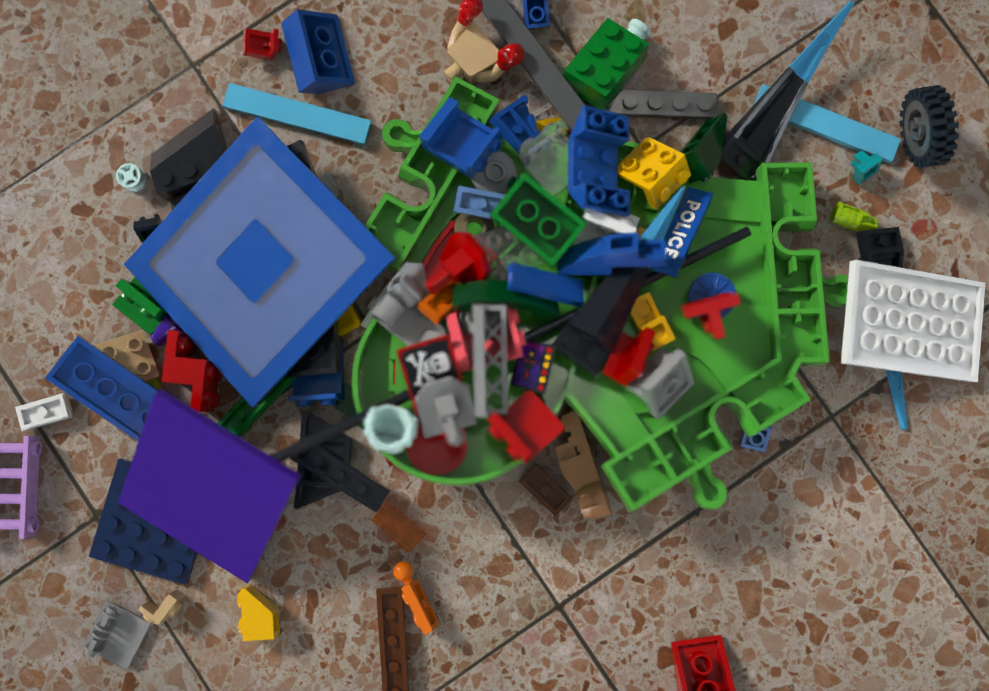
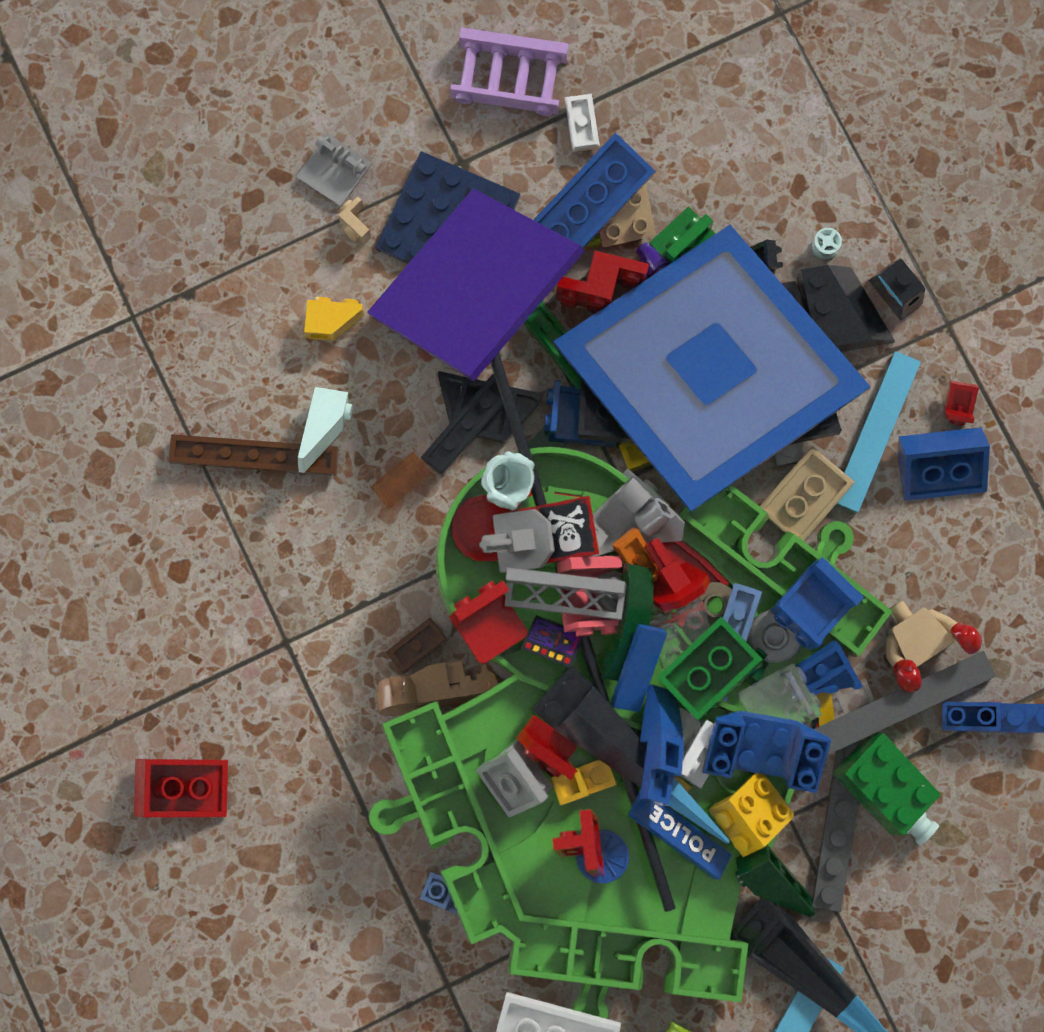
camera: 95 degrees right, 5 degrees down
(163, 108) = (898, 288): none -> black torso
(357, 606) = (323, 425): none -> light aqua slope
(361, 165) = (806, 494): none -> tan tile
(416, 598) = (322, 487): orange plate -> none

